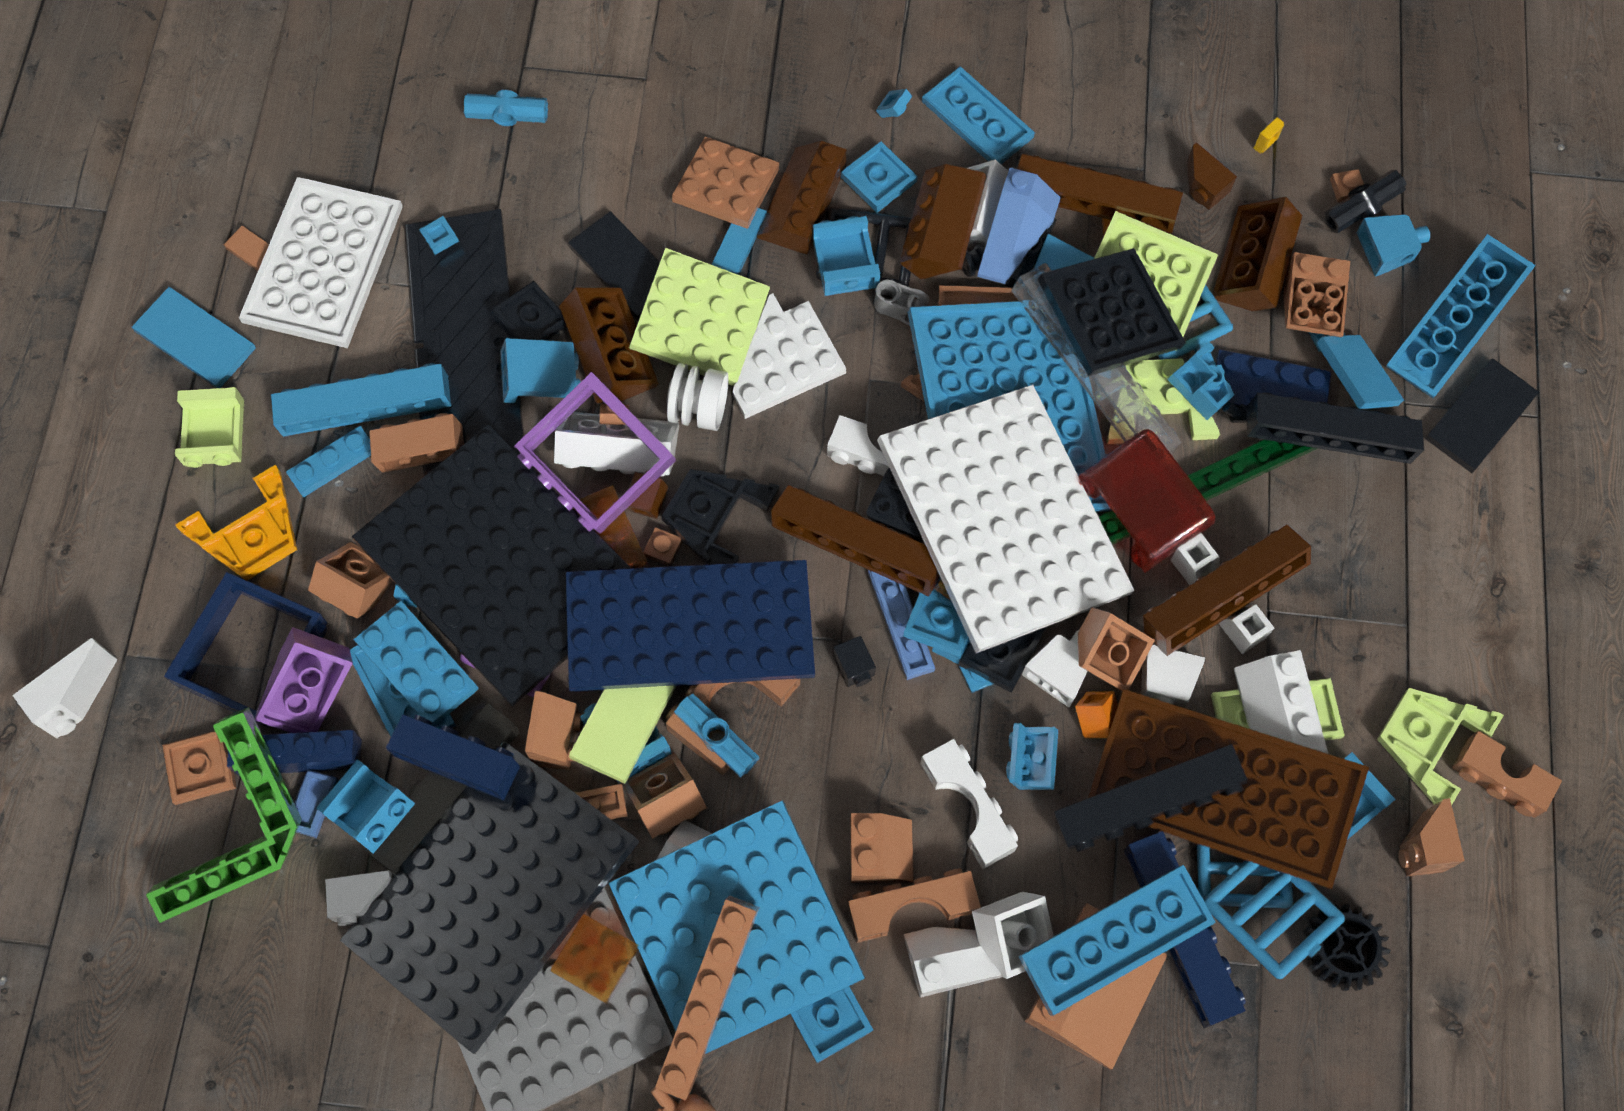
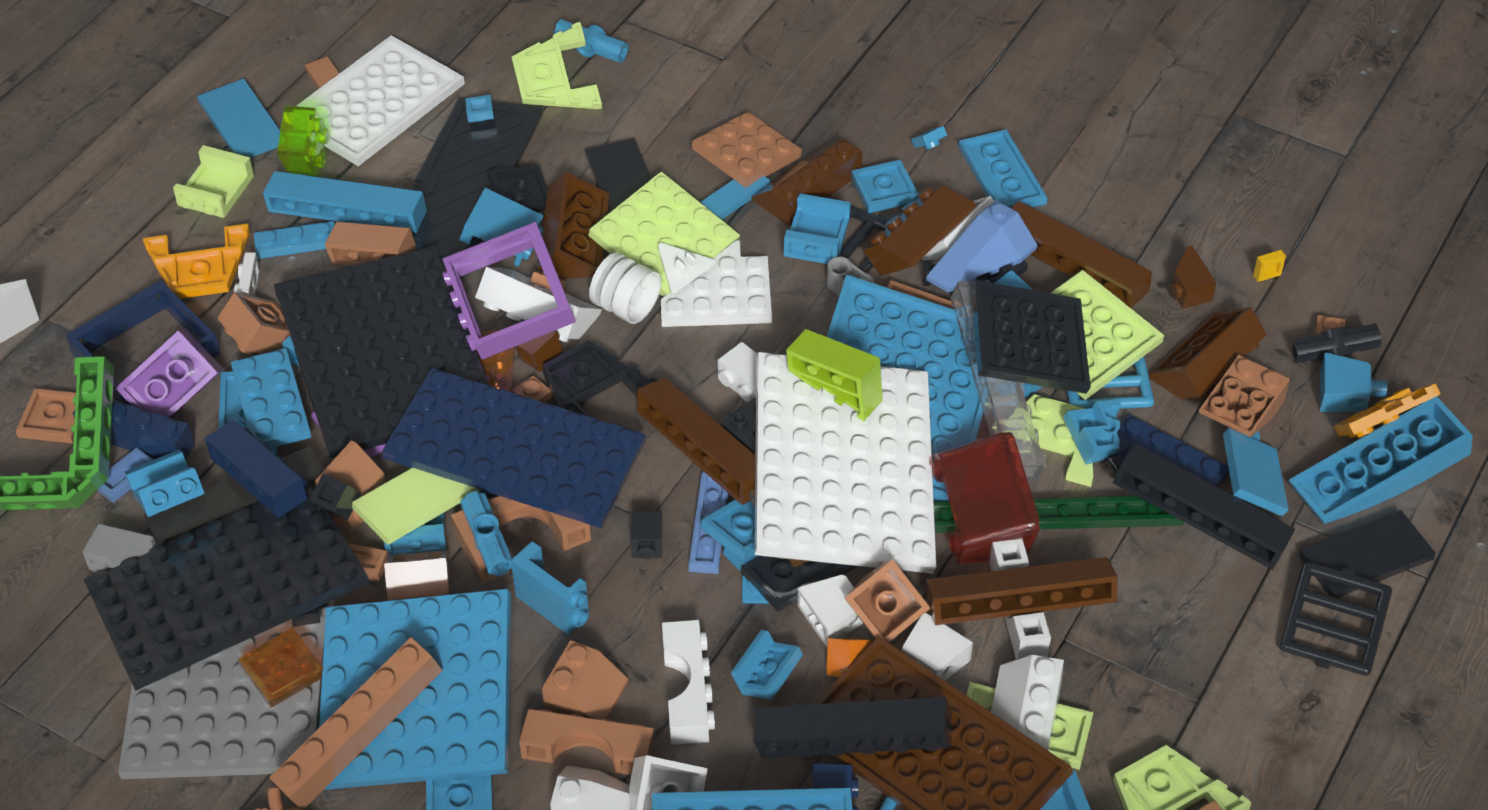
camera: 25 degrees right, 20 degrees down
(283, 349) = (302, 141): none -> clear neon green brick
(308, 523) = (248, 275): none -> white plate
(482, 170) = (543, 74): none -> yellowish green wing
(550, 760) = (334, 497): none -> black panel
(737, 348) = (682, 266): none -> white piece
(799, 771) = (559, 604): none -> dark azure panel
(967, 429) = (838, 369): none -> lime wedge
(1442, 271) = (1384, 411): none -> light orange wing
(1522, 479) = (1376, 616): none -> black bar

